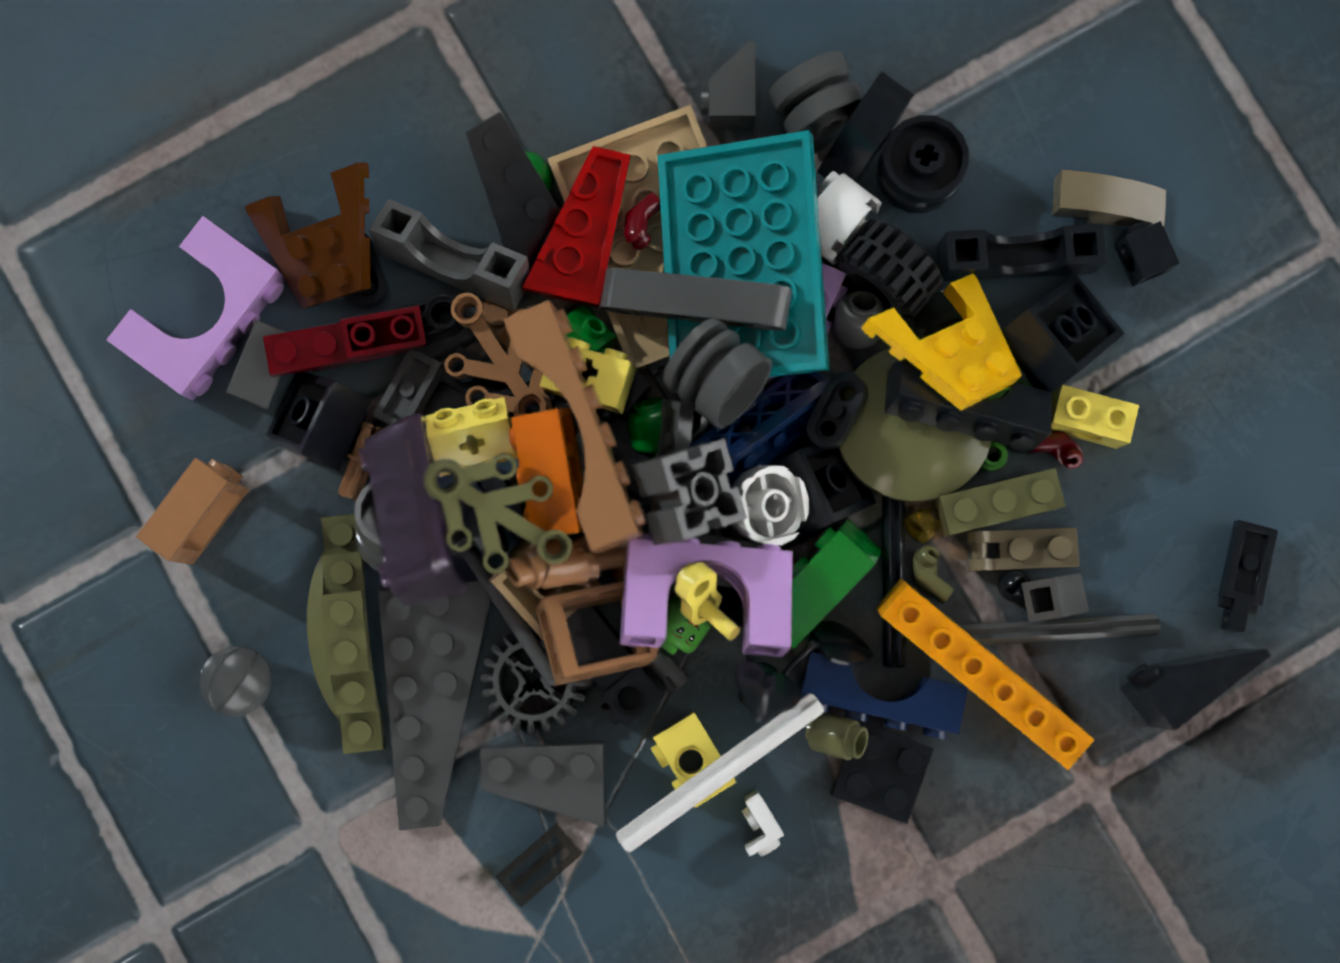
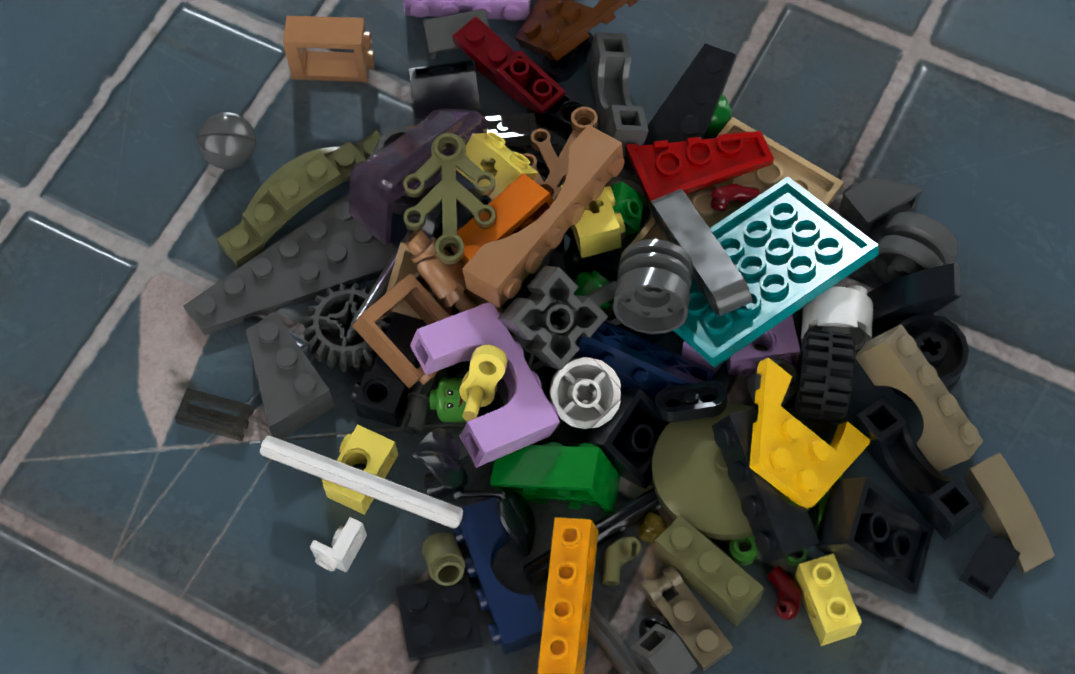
camera: 60 degrees right, 20 degrees down
(935, 198) = (898, 363): none -> dark tan arch

